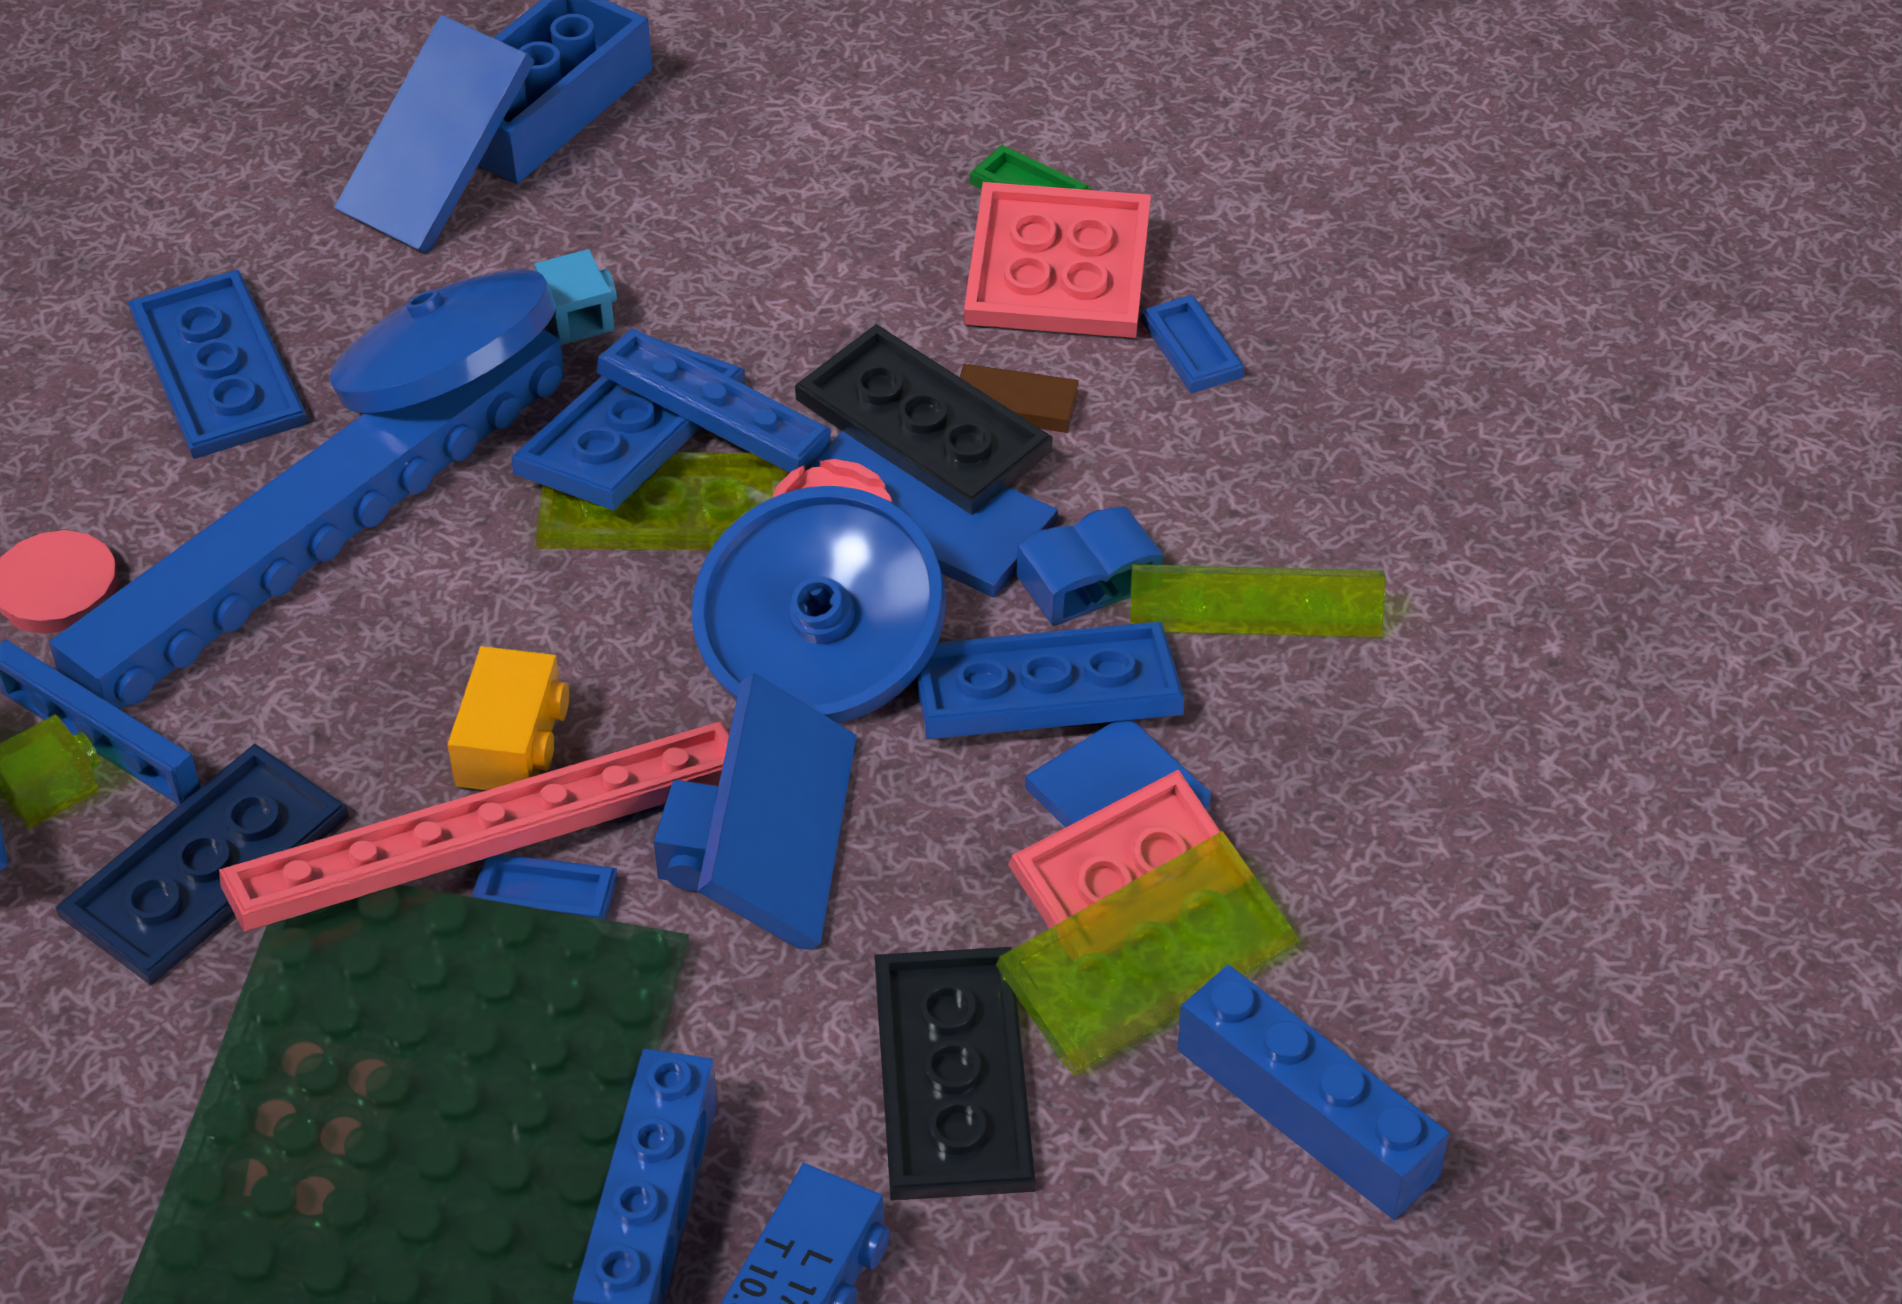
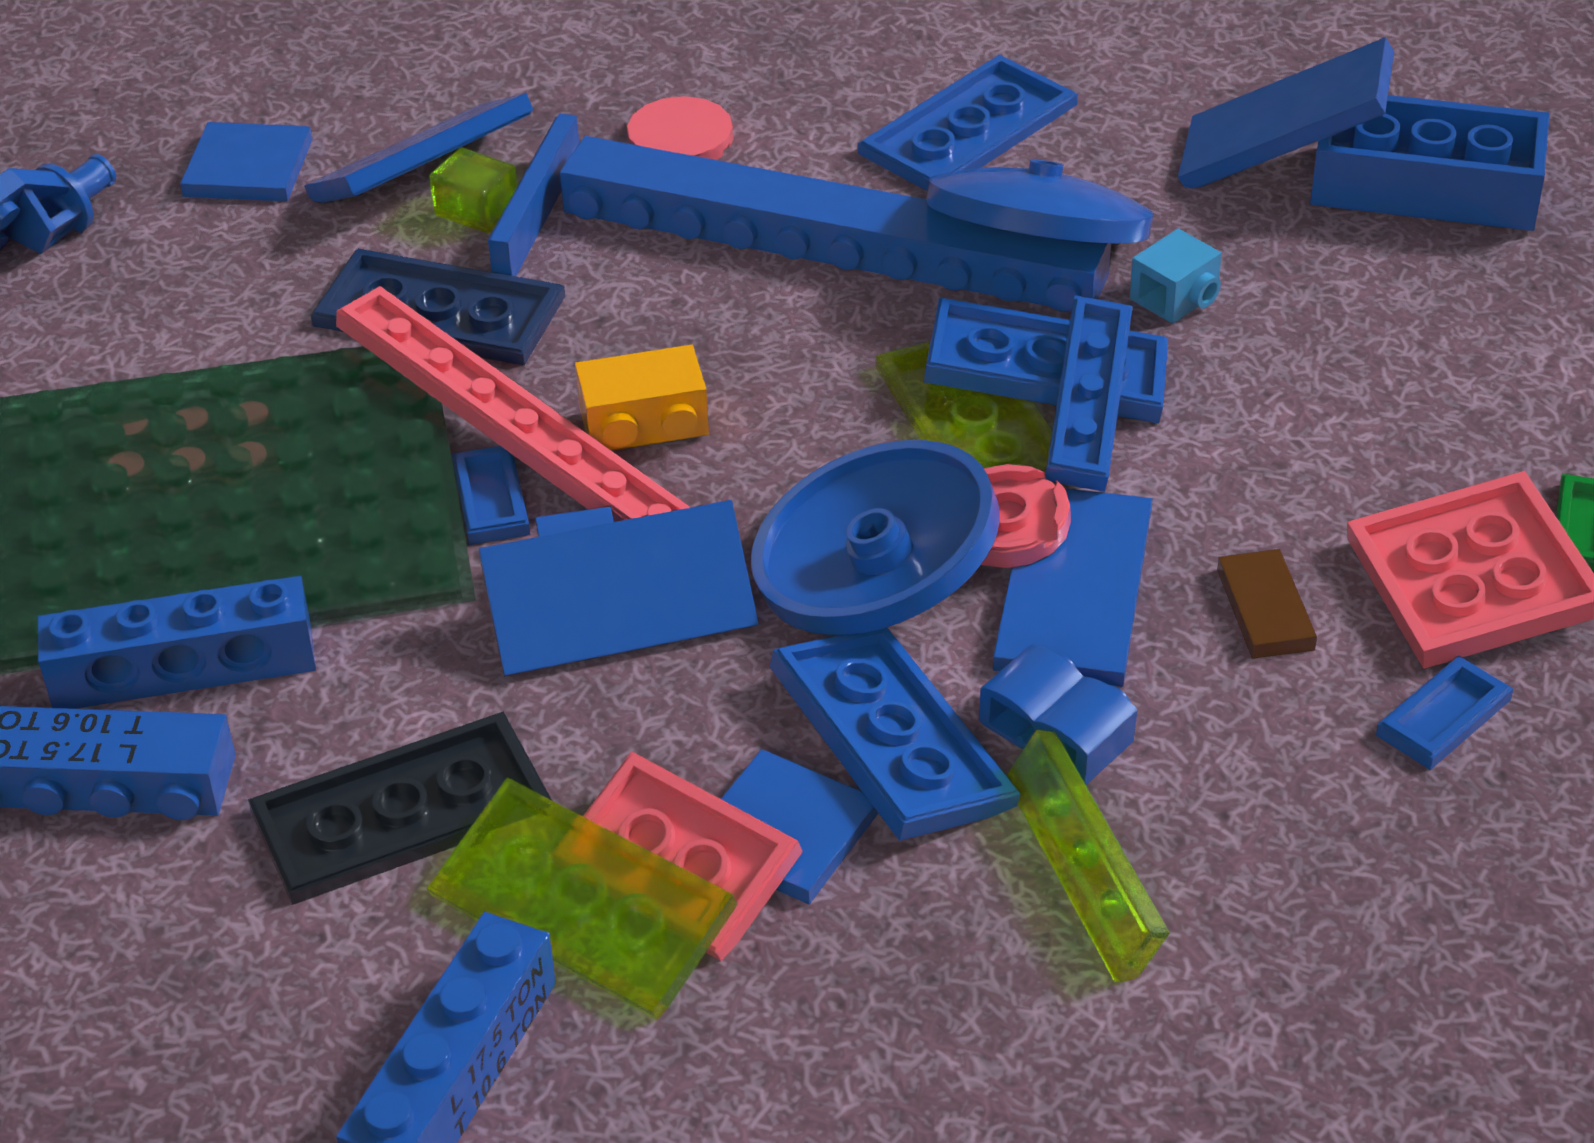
camera: 70 degrees right, 5 degrees down
(924, 419) = (1174, 541): black tile -> none

